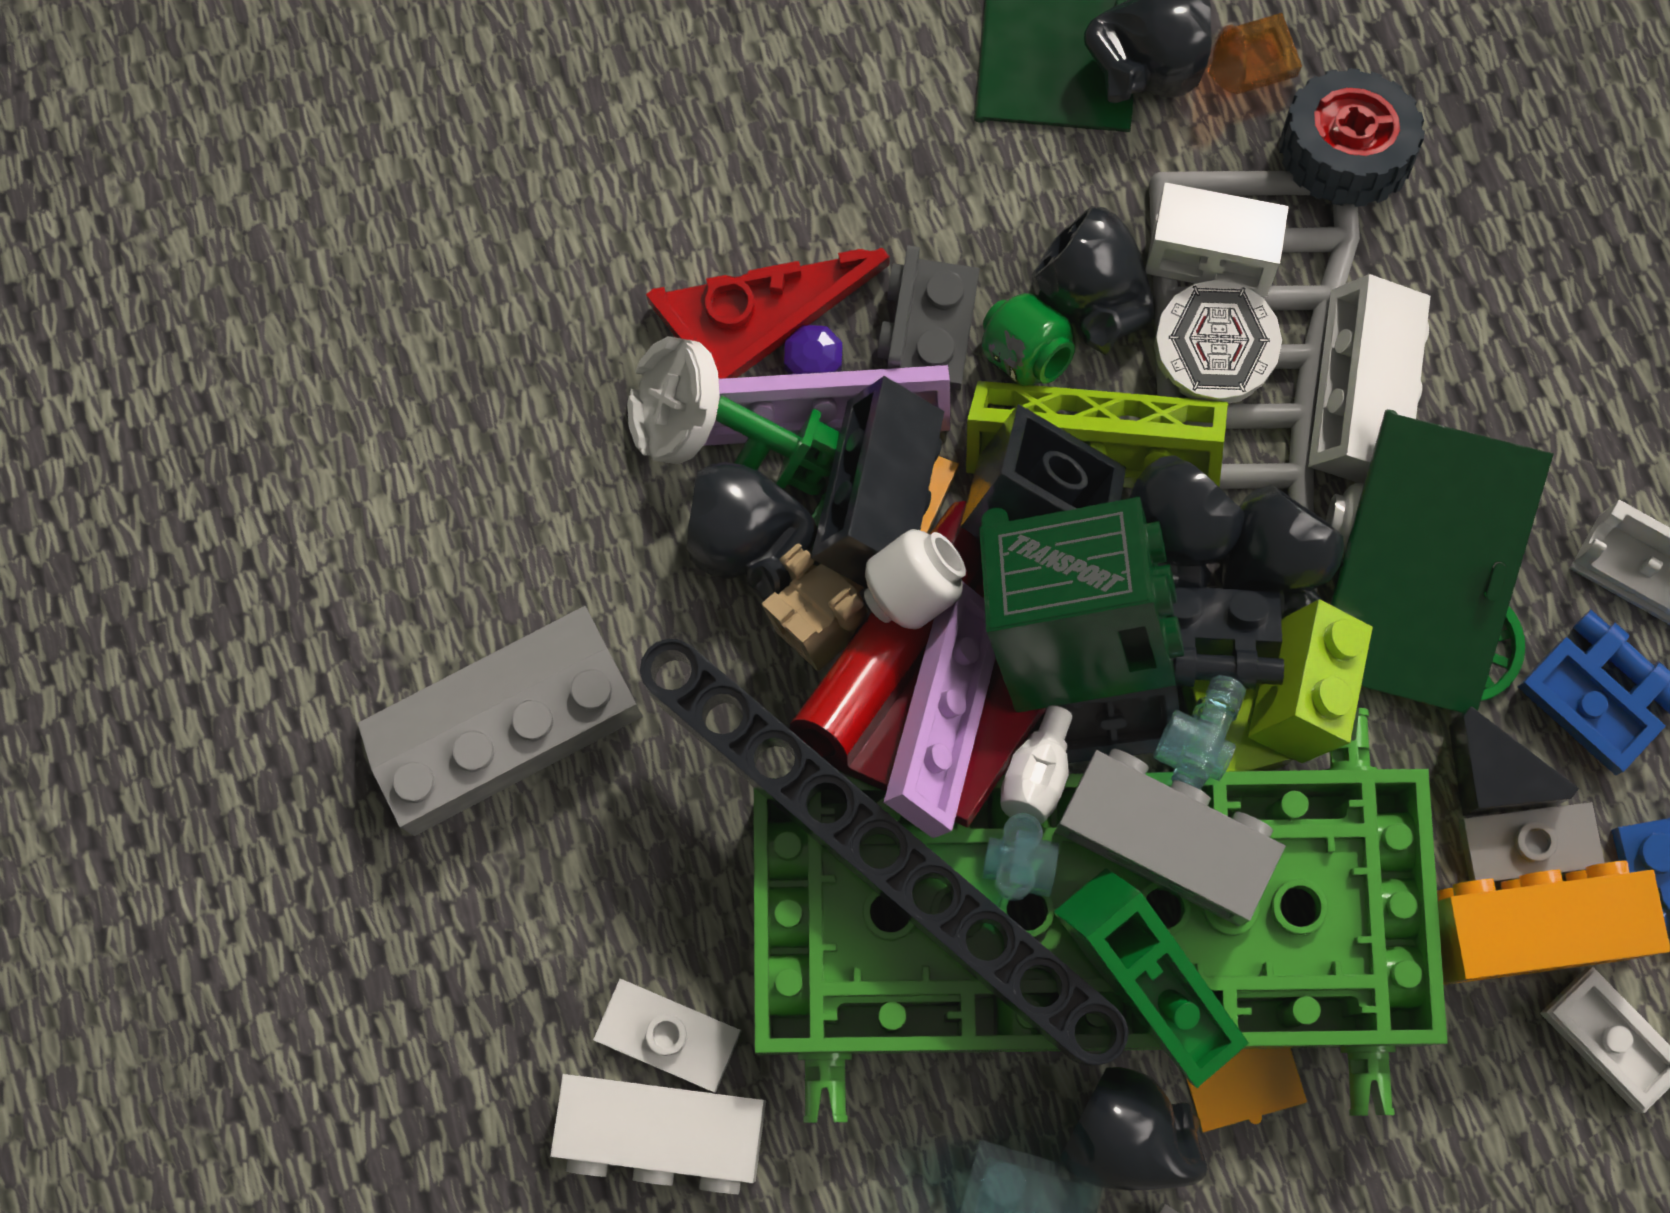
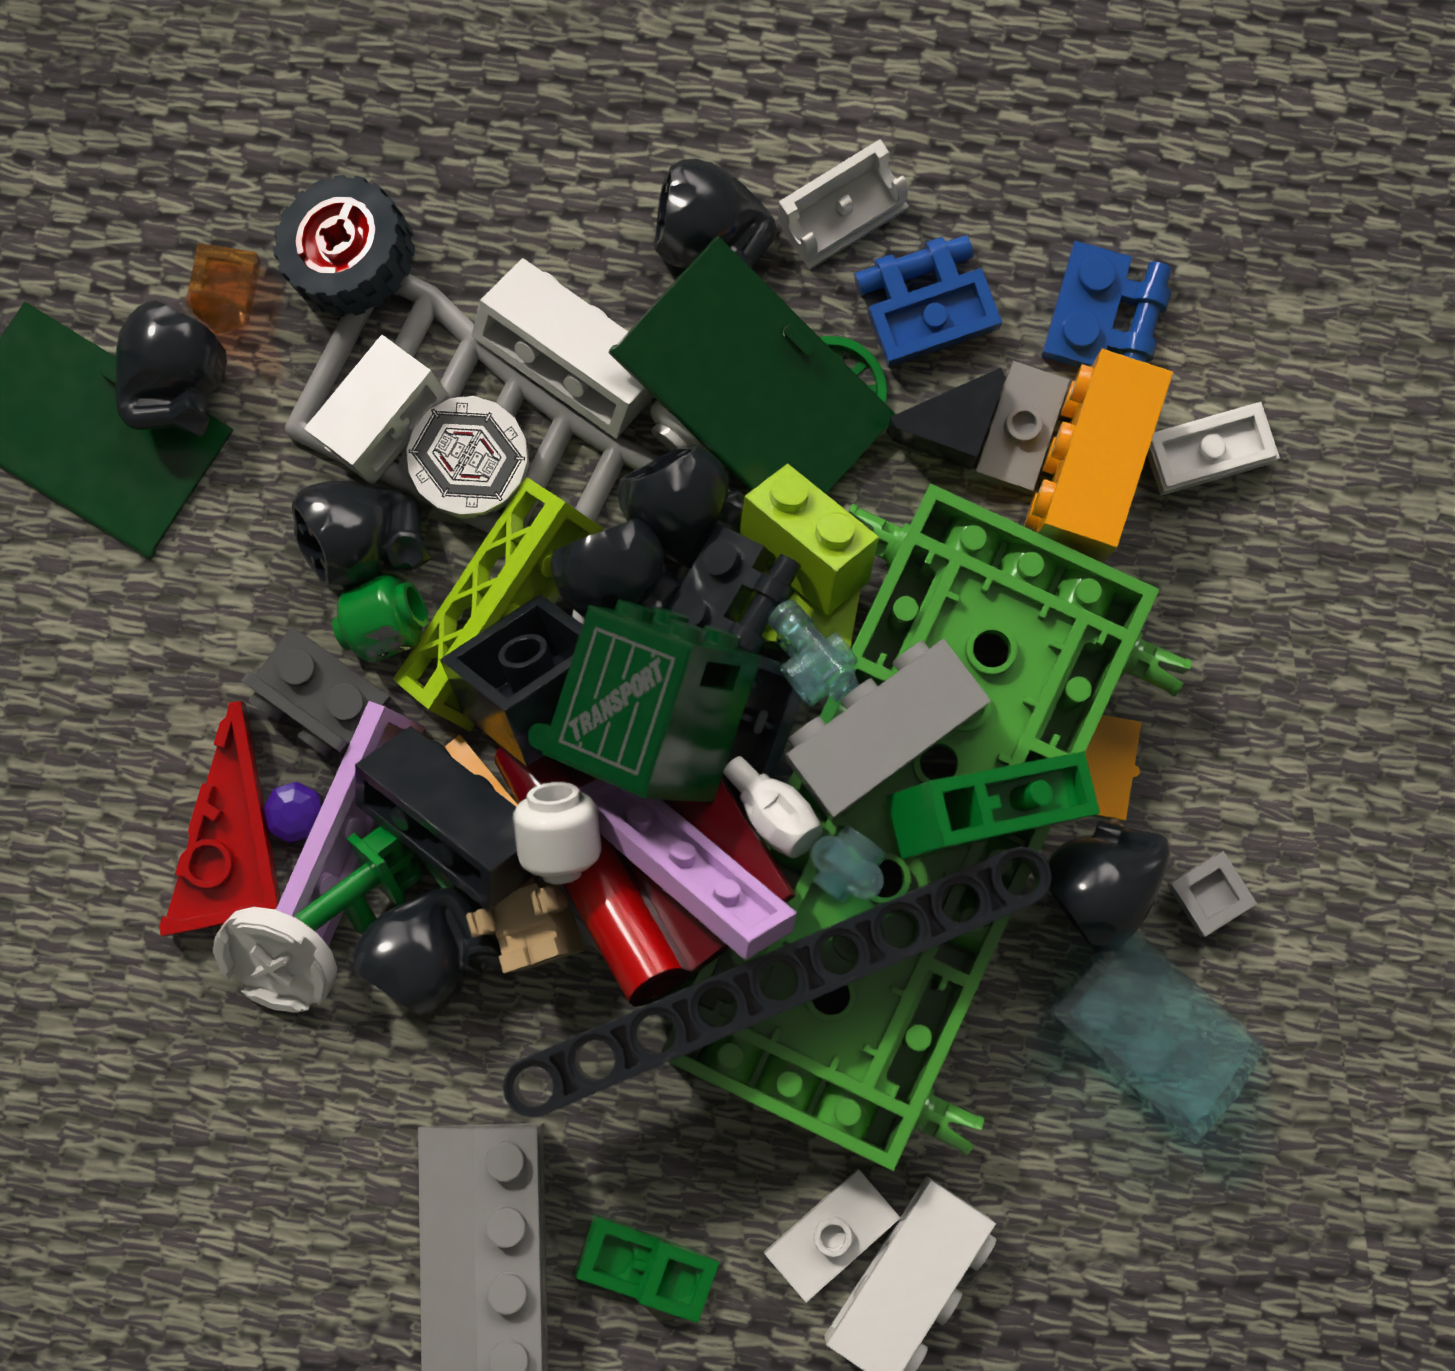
camera: 65 degrees left, 5 degrees up
(555, 875) = (646, 1268): none -> green slope
(1585, 441) = (708, 202): none -> black piece

